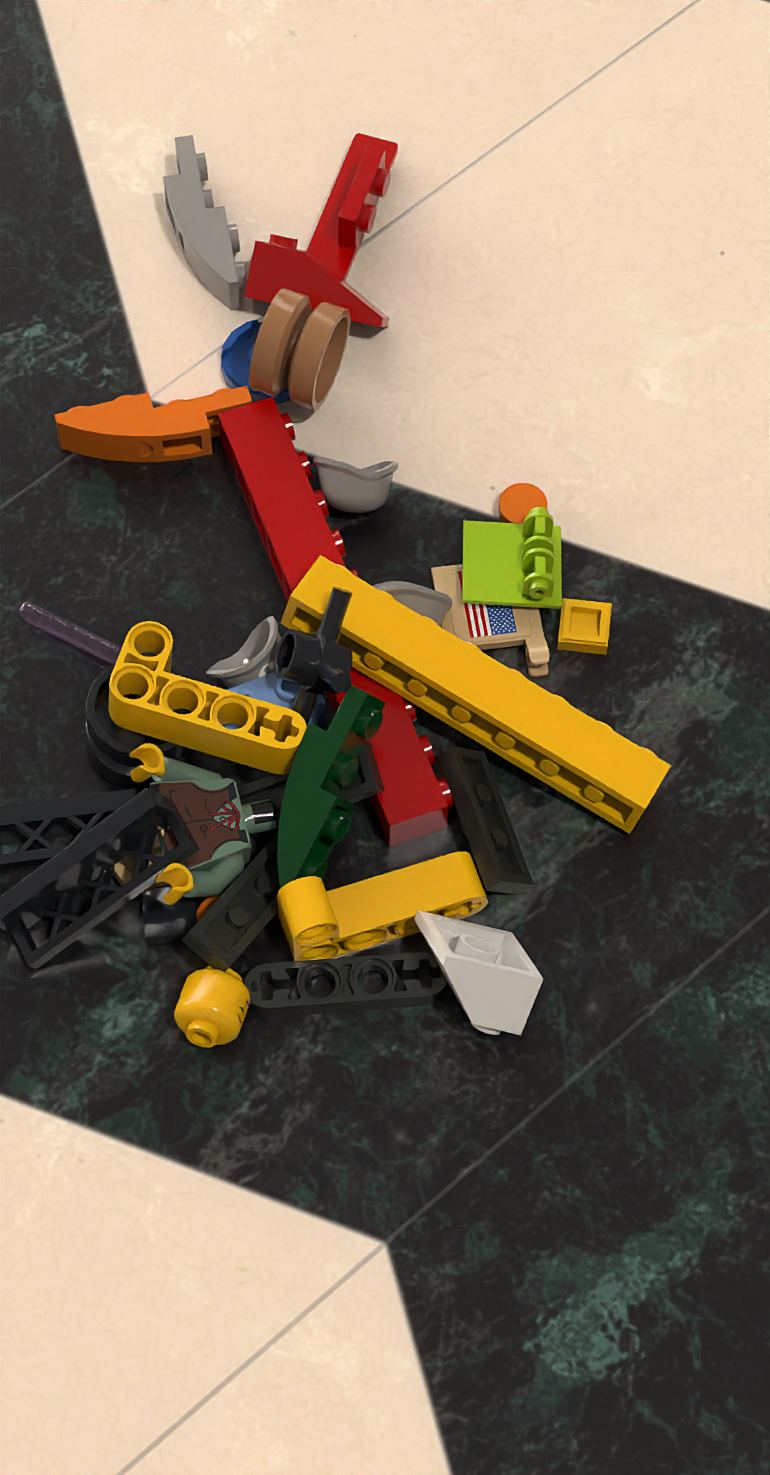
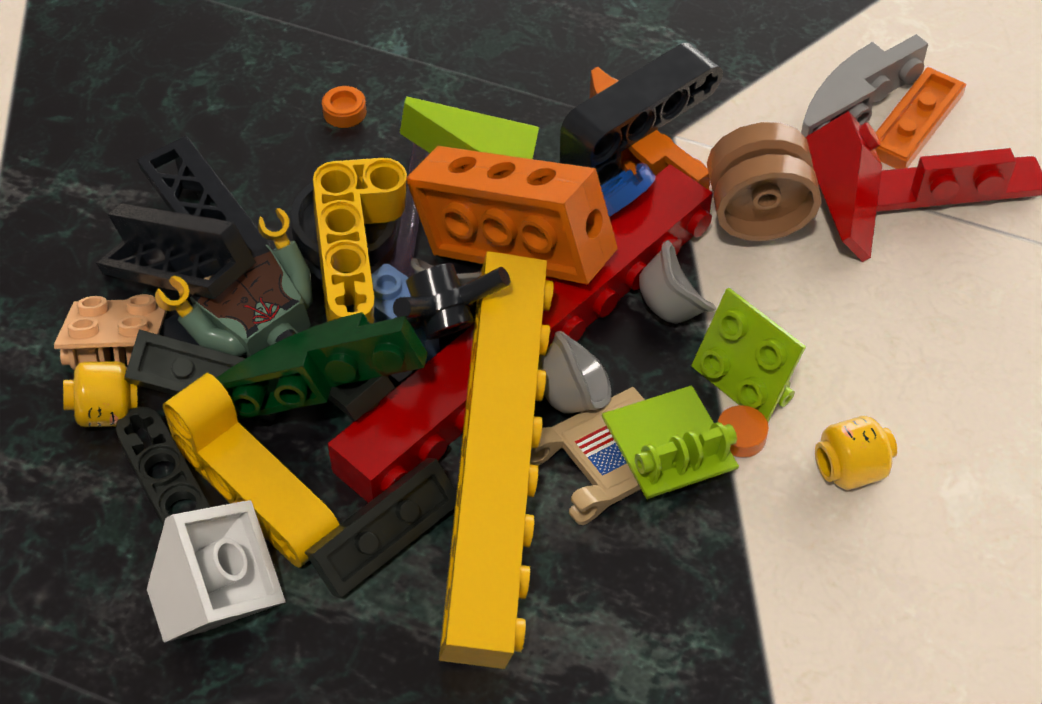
camera: 65 degrees right, 10 degrees down
(87, 565) = (442, 125): none -> lime slope
(128, 973) = (100, 323): none -> light nougat hinge
(146, 410) = (636, 107): none -> black beam
(227, 479) = (626, 187): none -> blue tile
(239, 575) = (513, 208): none -> orange brick
(250, 191) = (917, 117): none -> orange tile
(467, 460) = (748, 355): none -> lime hinge
(584, 626) = (647, 532): yellow tile -> none
(596, 434) = (855, 452): none -> yellow head

